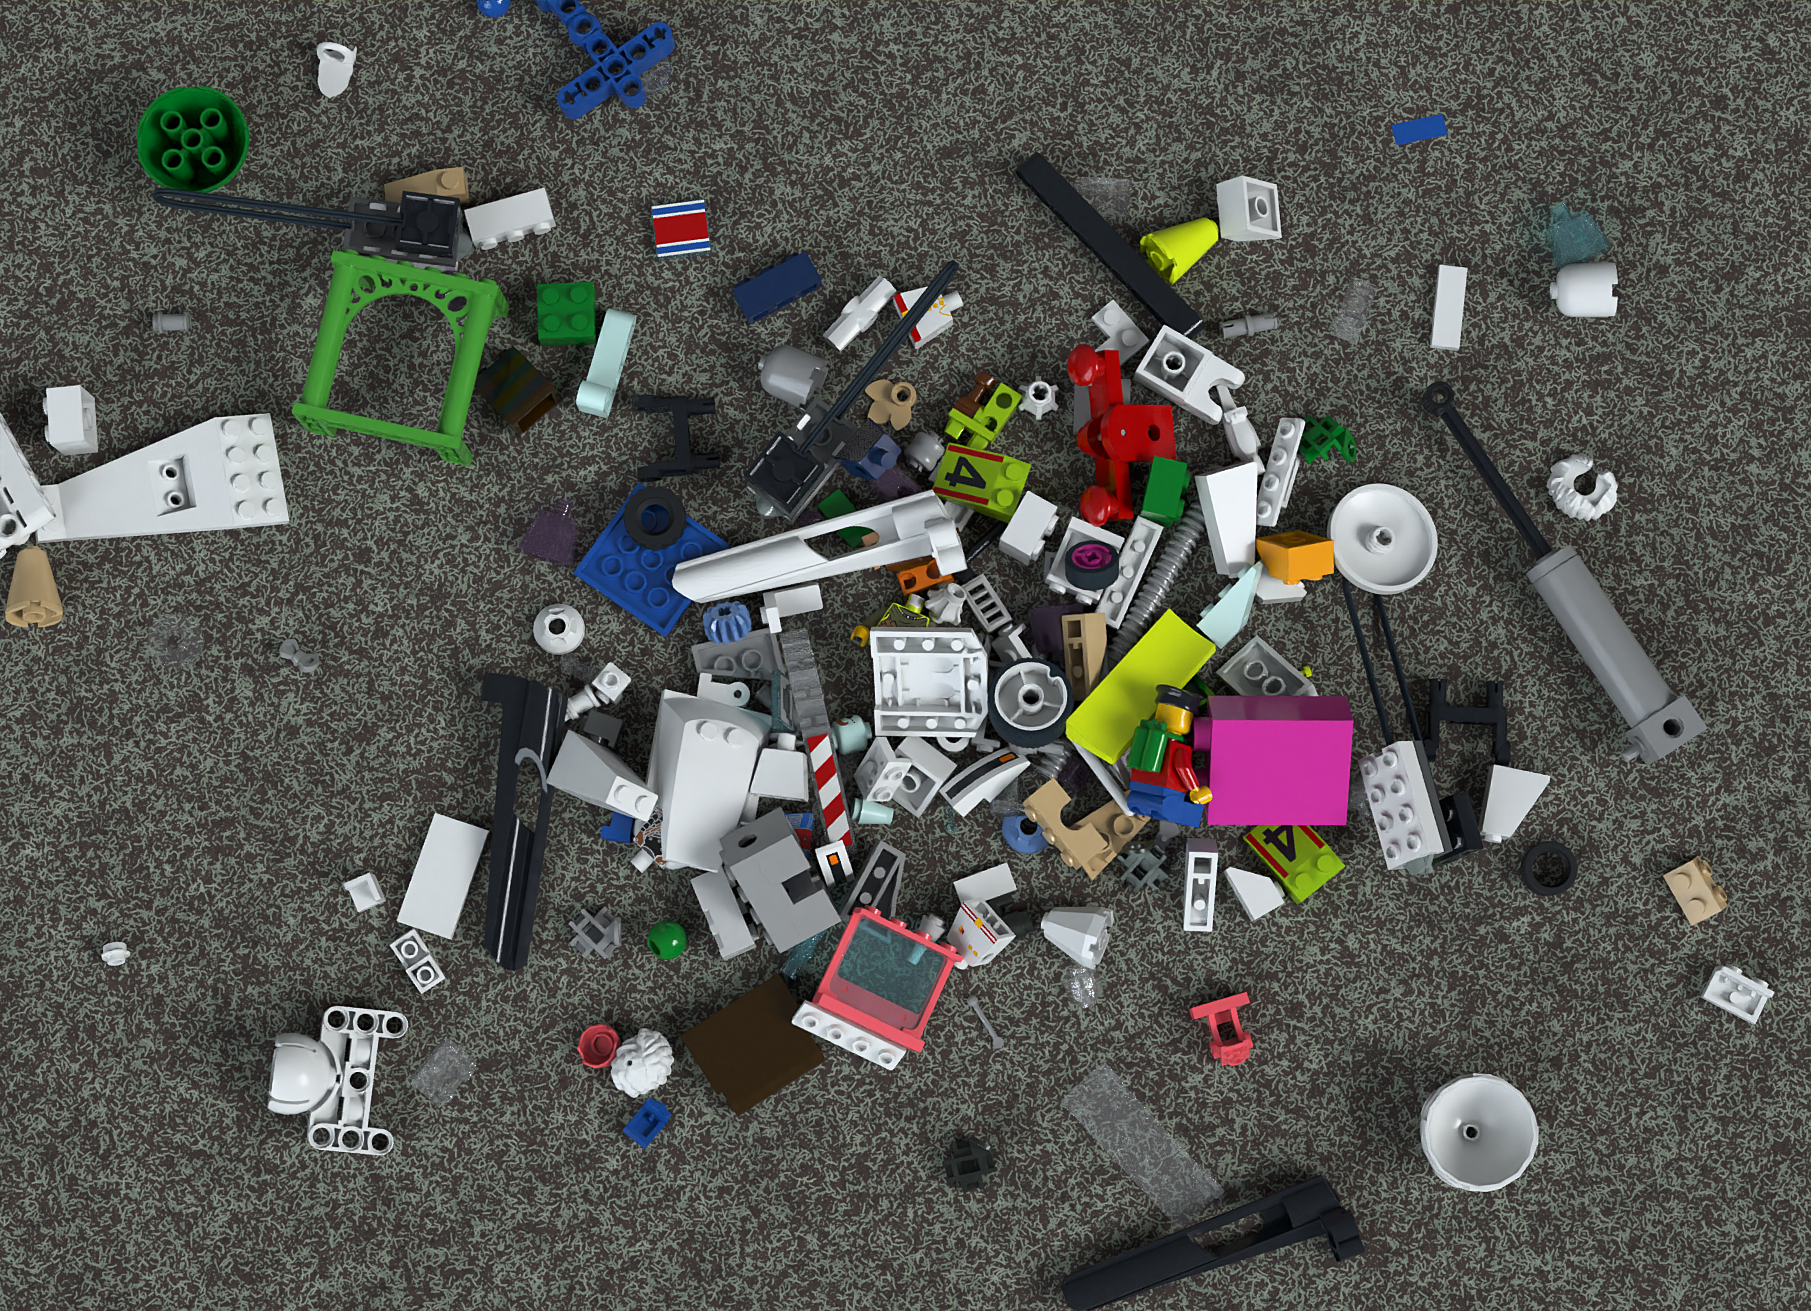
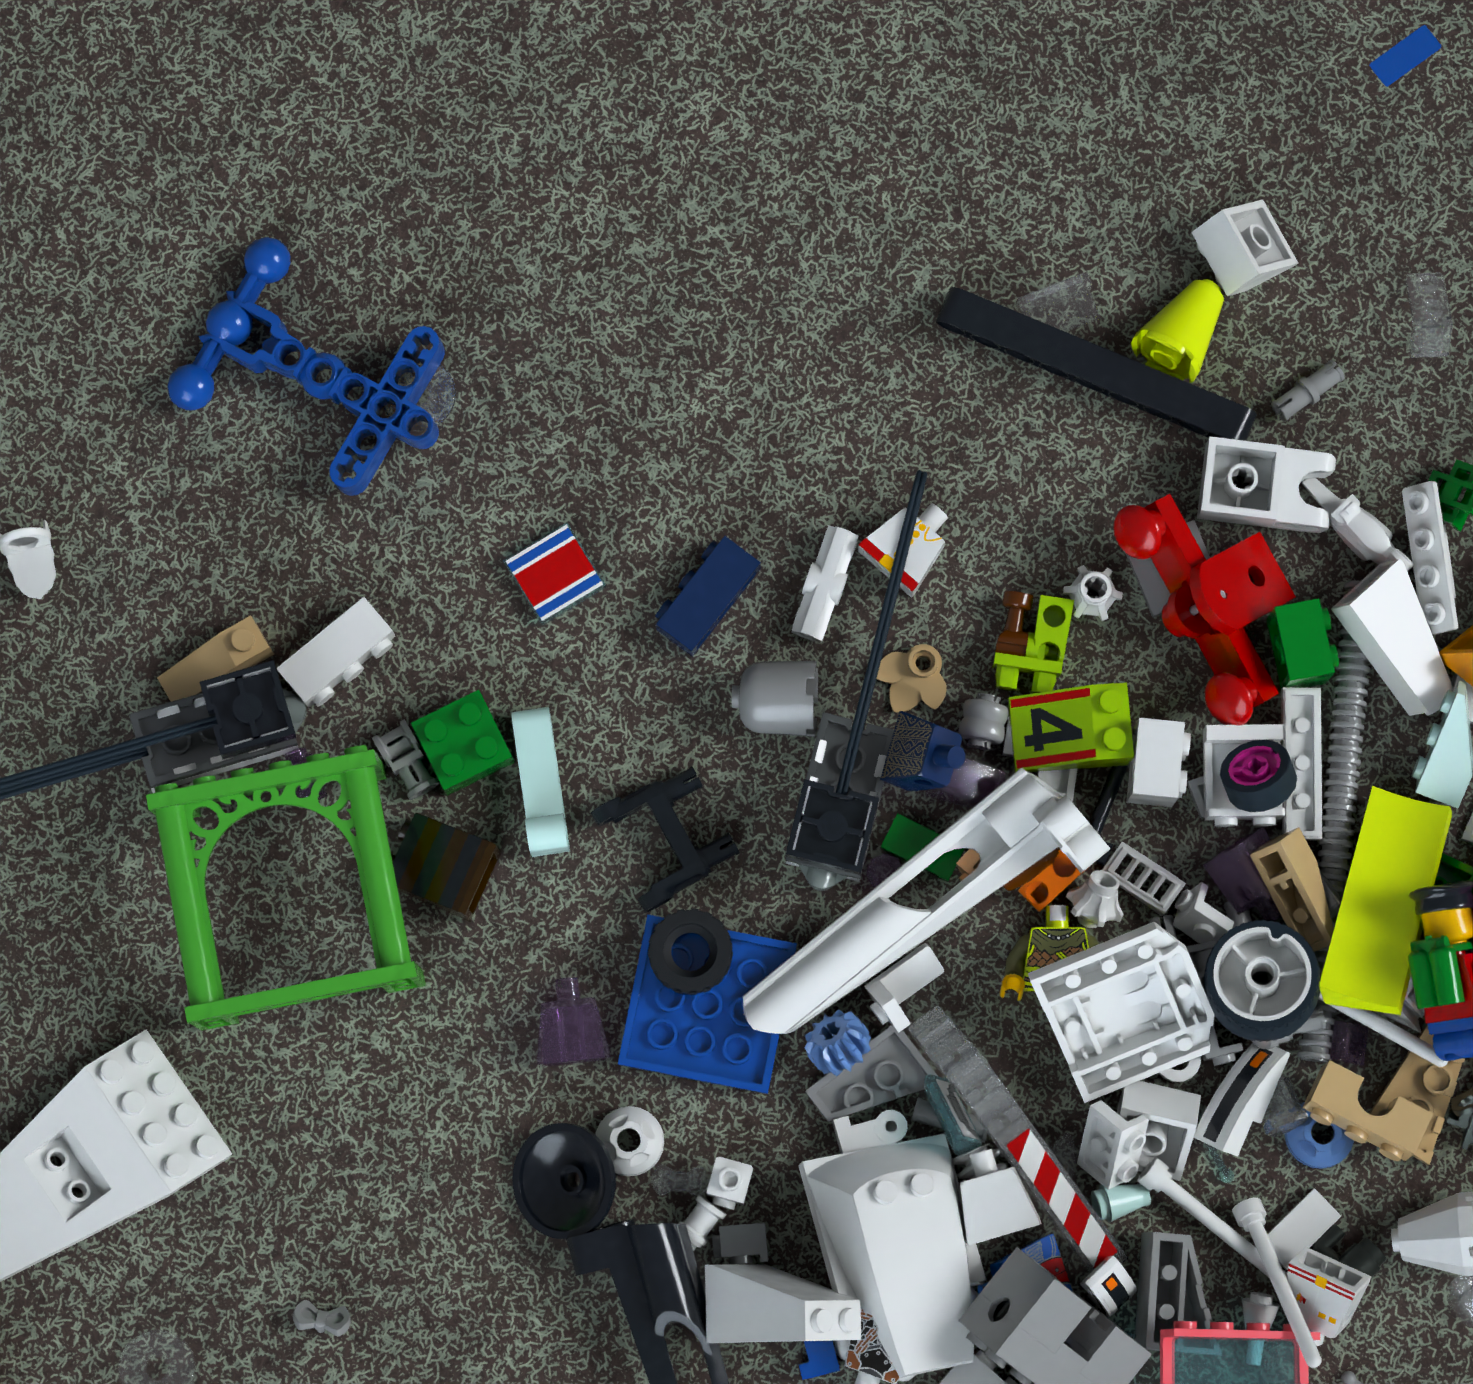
camera: 20 degrees left, 0 degrees up
(491, 629) = (547, 1185): none -> black dish
(524, 306) = (402, 754): none -> light grey connector
(850, 734) = (1052, 1113): light aqua head -> none
(903, 809) = (1157, 1177): none -> white piece
(954, 861) = (1251, 1216): none -> white piece
(1120, 331) = (1158, 466): white plate -> none

